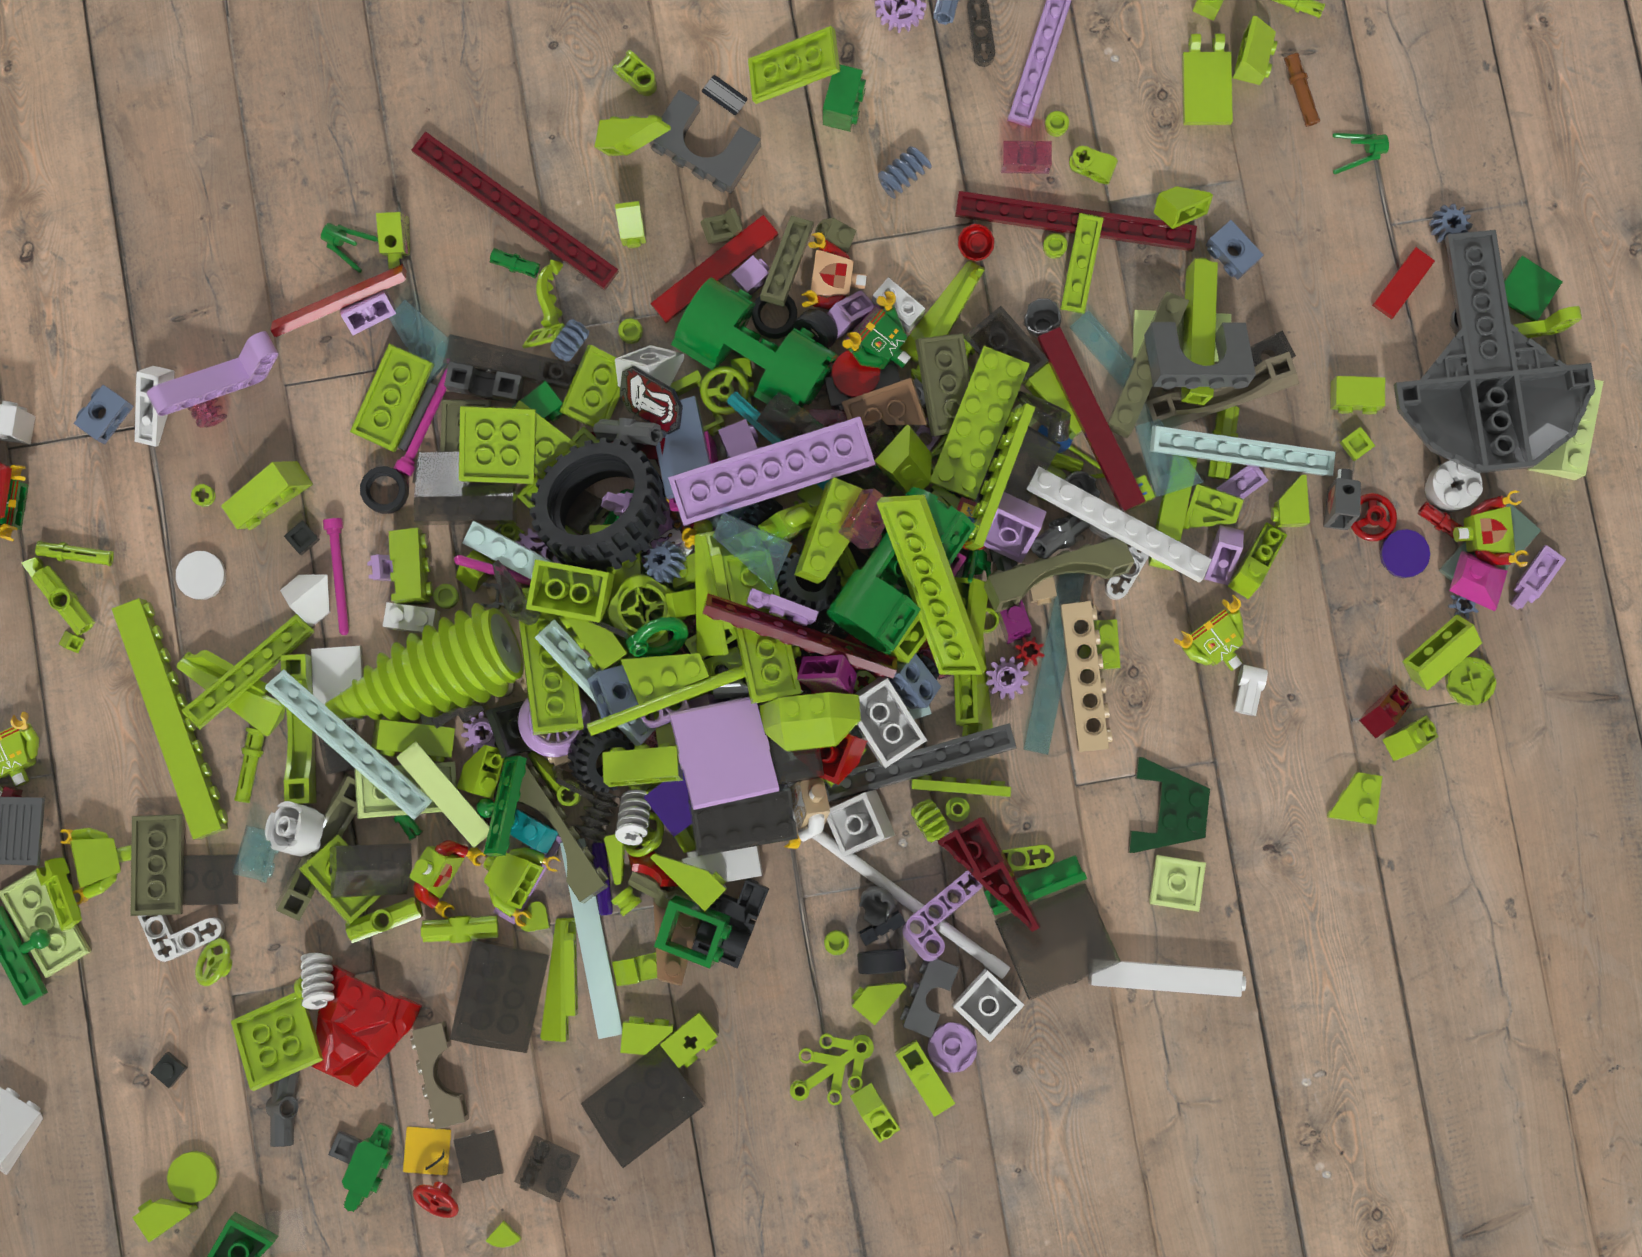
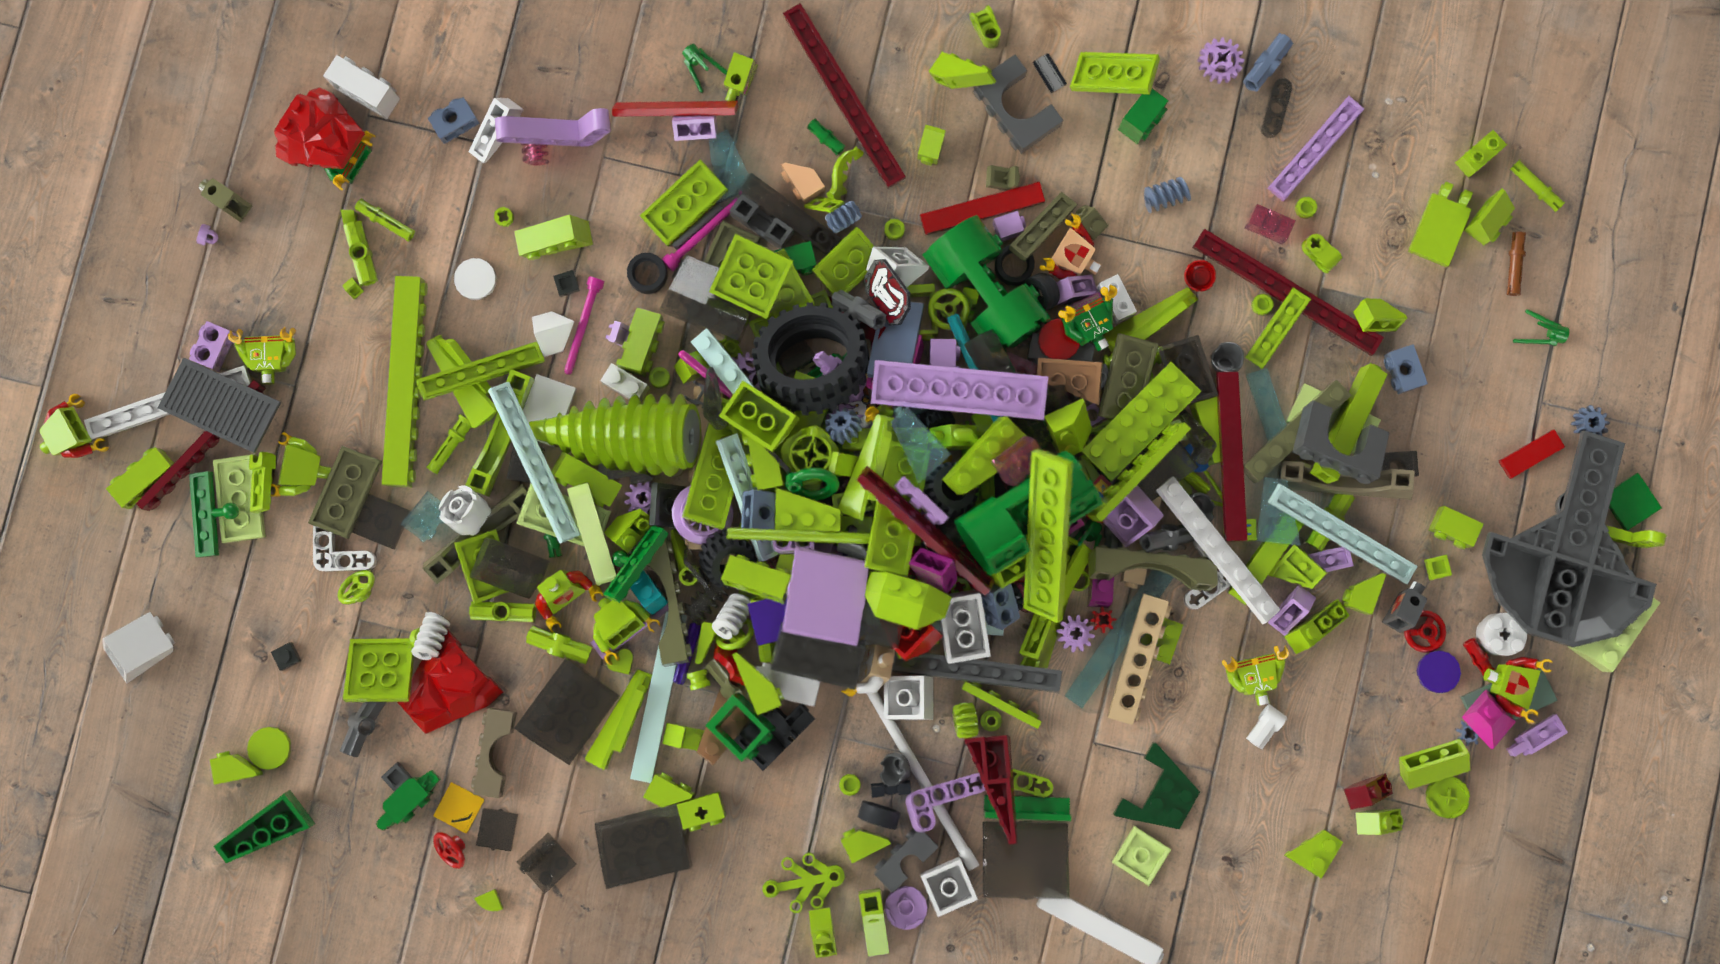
camera: 25 degrees right, 0 degrees up
(511, 319) = (804, 181): none -> light nougat slope

